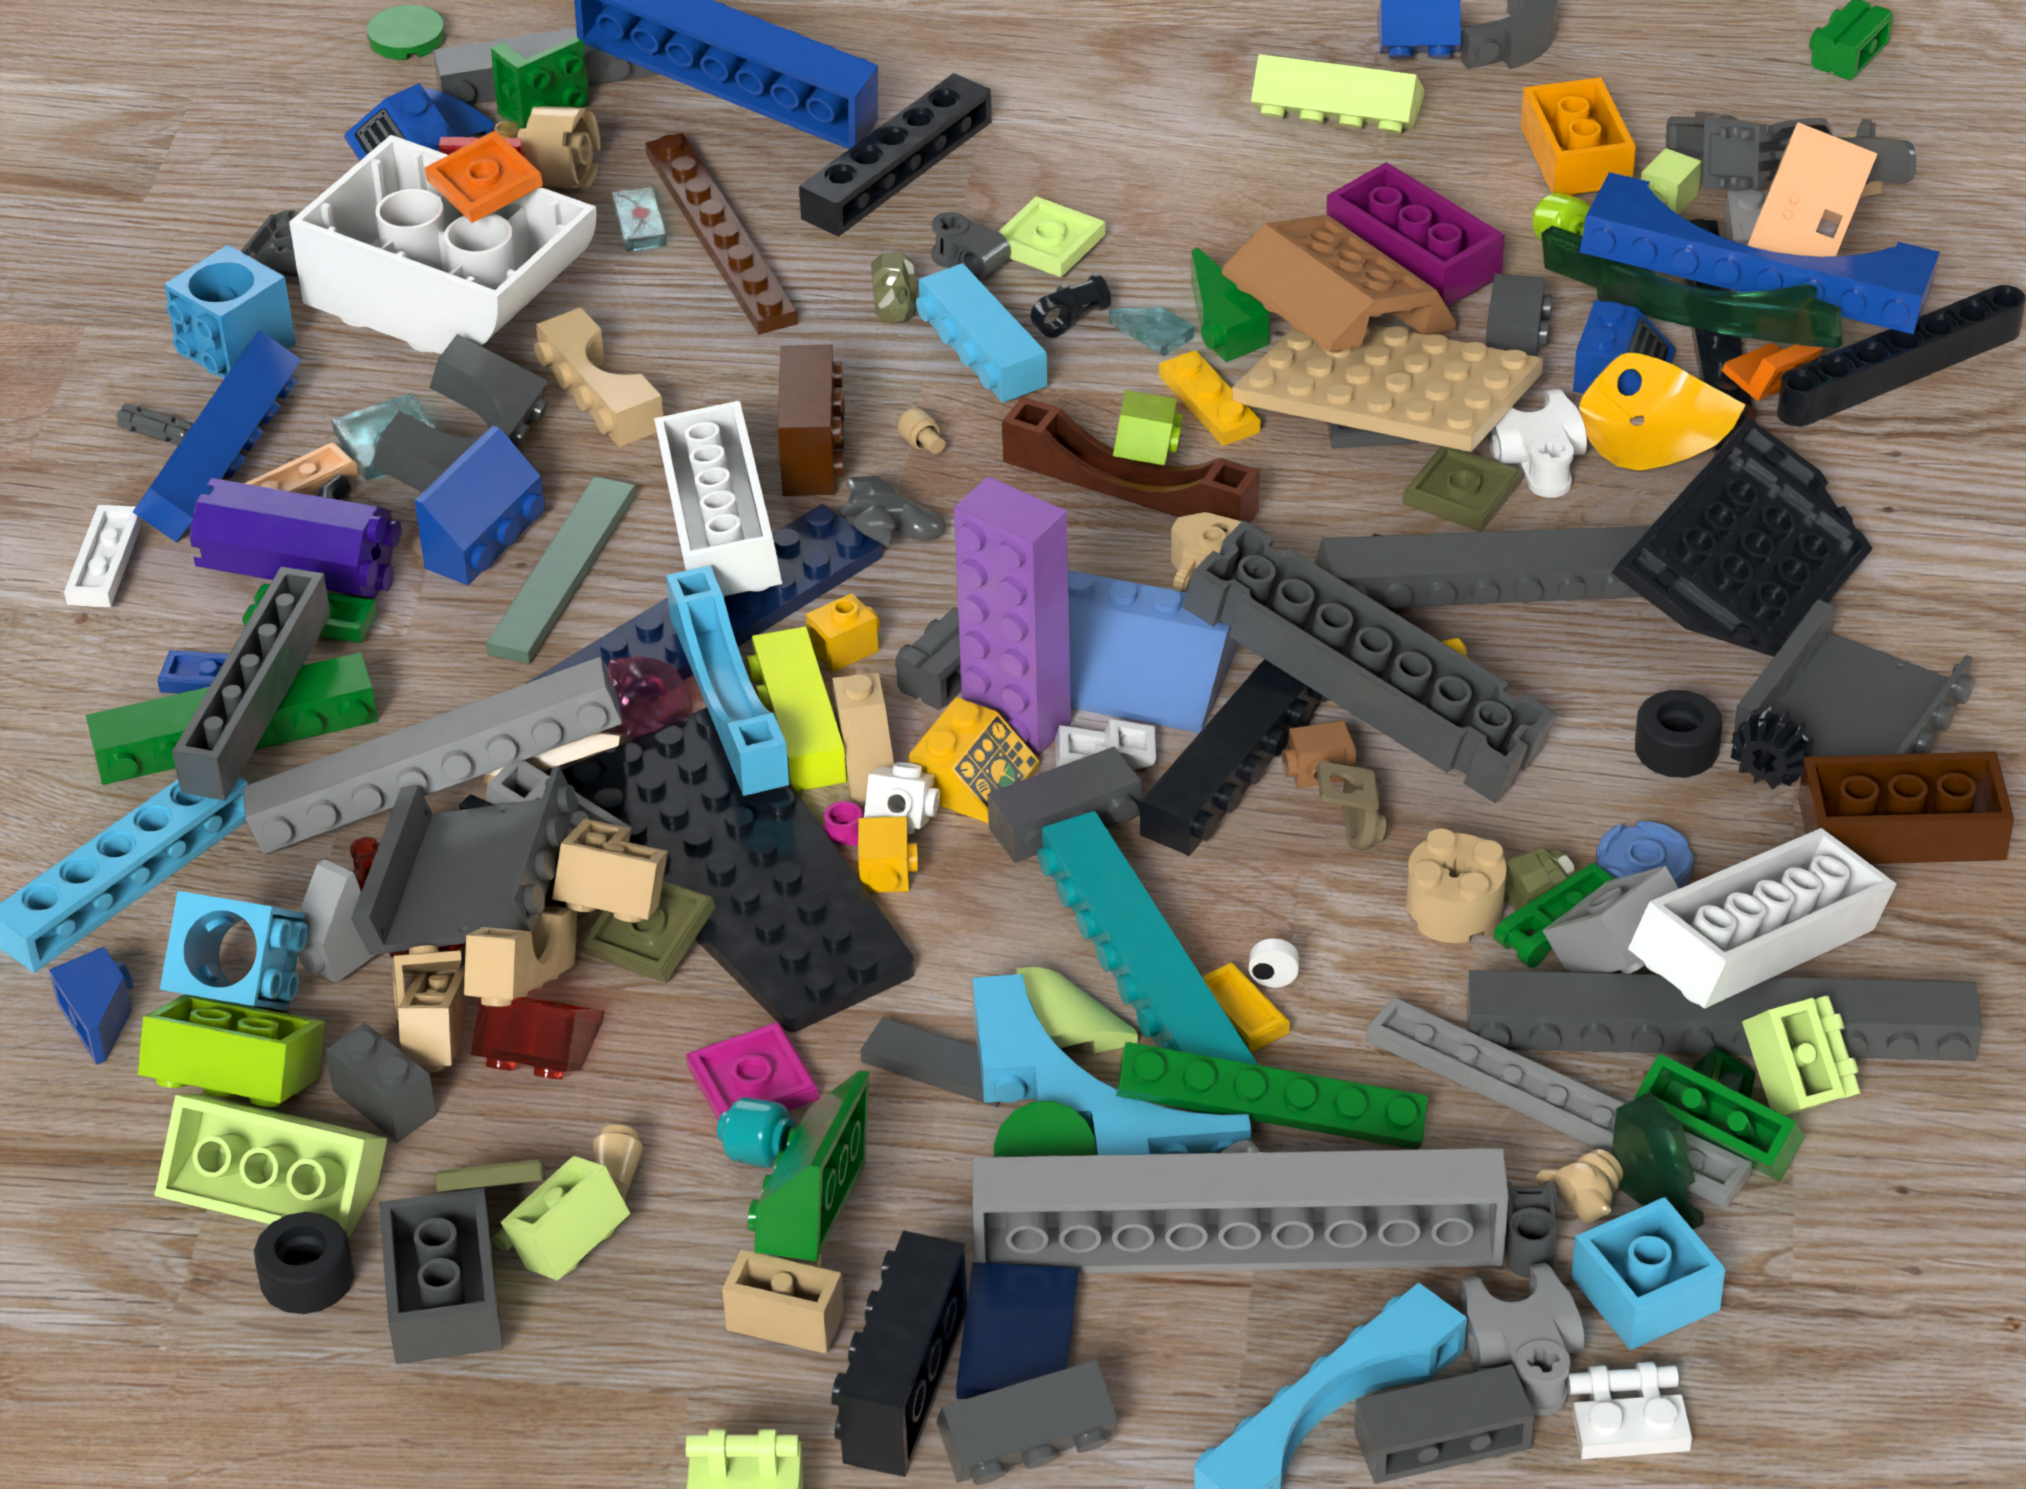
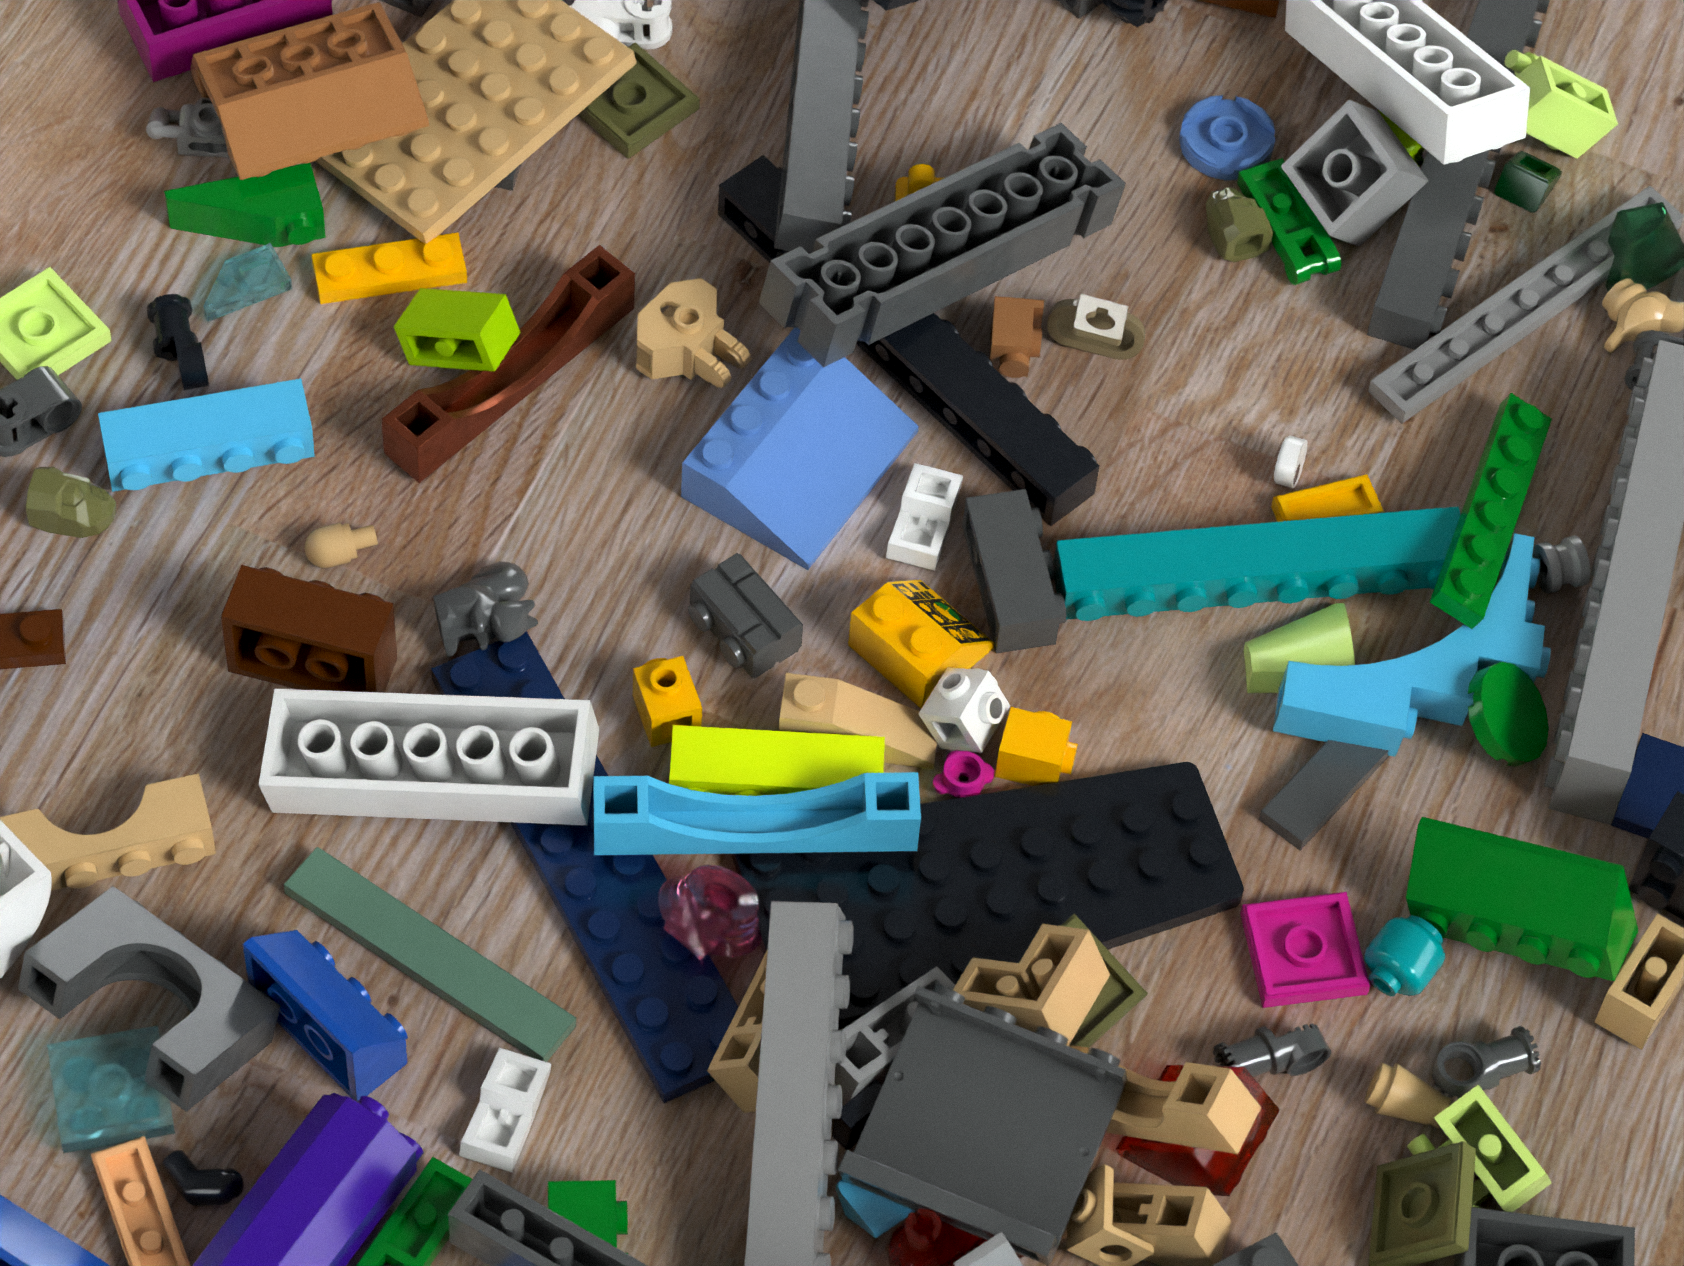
camera: 80 degrees left, 15 degrees up
(452, 639) = (505, 1110): none -> white slope
(628, 1064) = (1293, 1052): none -> dark grey connector
(664, 1208) = (1489, 1062): none -> dark grey connector
(1014, 609) = (850, 496): medium lavender brick -> none
(1456, 886) = (1241, 285): tan brick -> none
(1678, 733) = (1079, 72): black tyre -> none
(1724, 1116) = (1600, 187): green brick -> none

